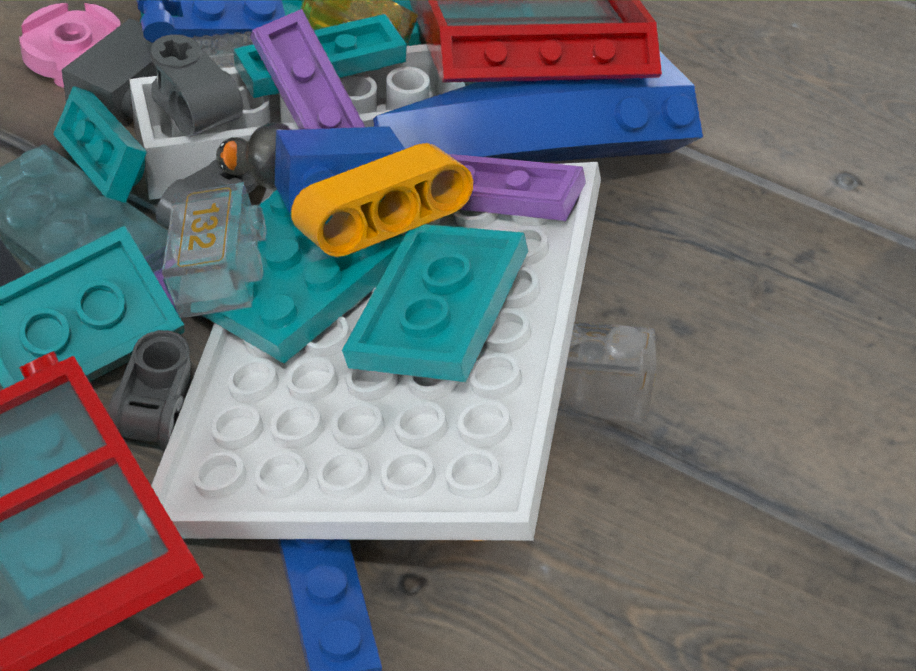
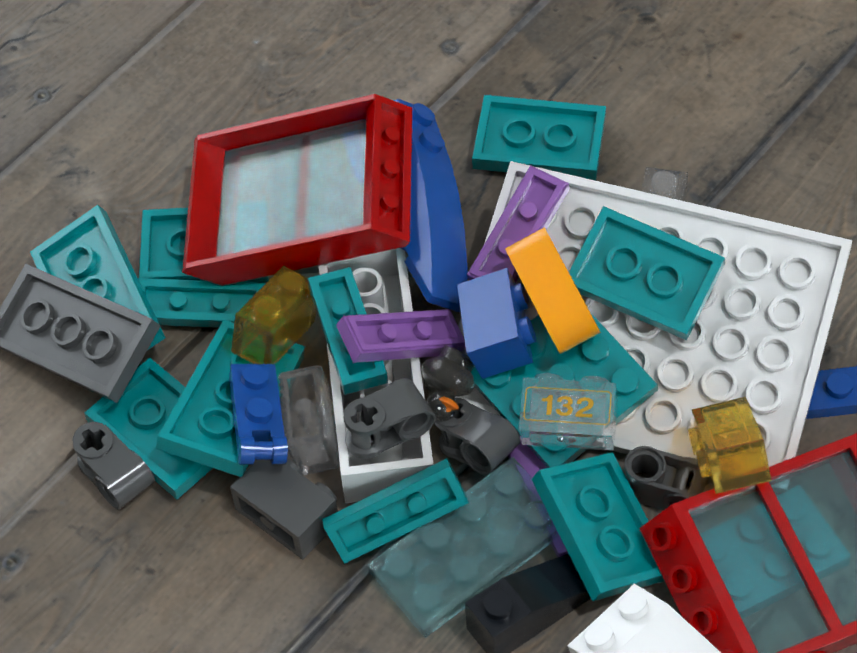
camera: 75 degrees left, 10 degrees up
(59, 36) = (222, 573): bright pink plate -> none
(163, 408) = (729, 445): none -> clear yellow brick
(708, 257) = (539, 134): none -> teal plate

